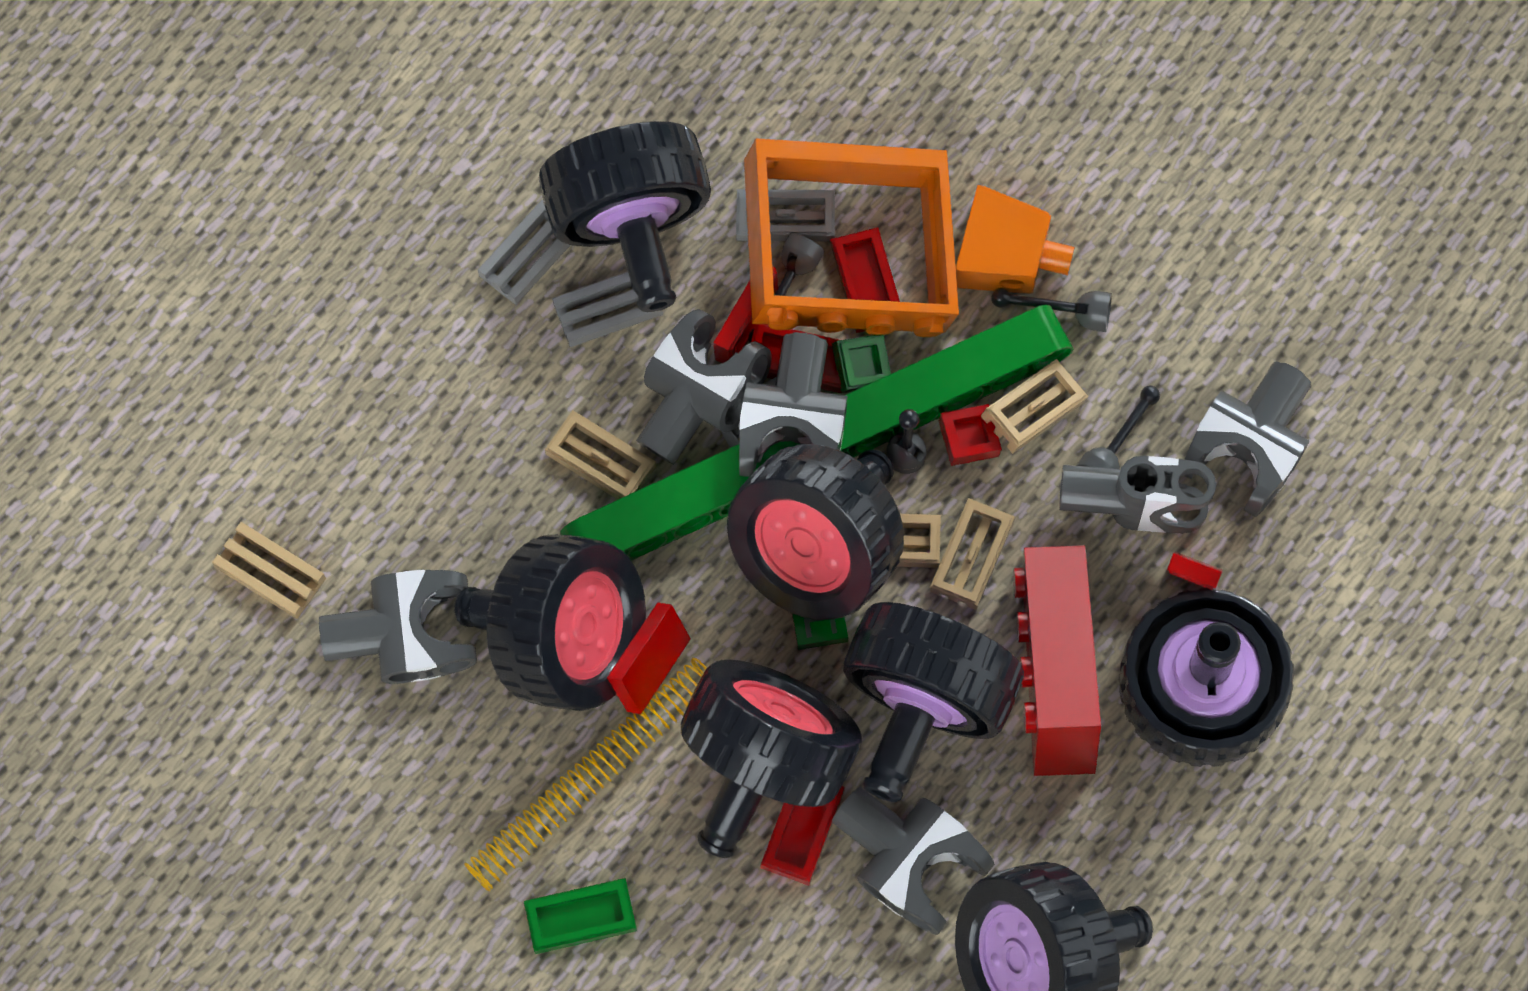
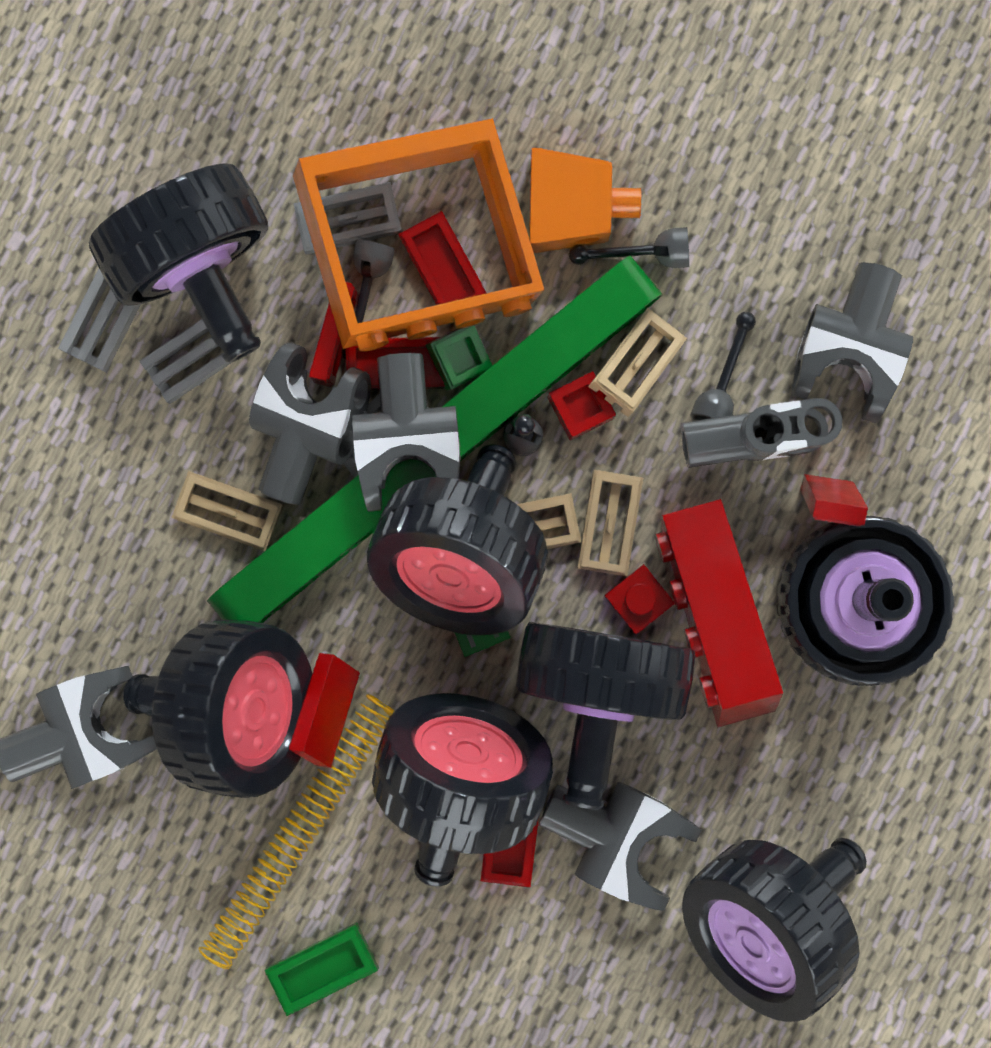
camera: 10 degrees left, 15 degrees up
(991, 621) = (639, 599): none -> red plate

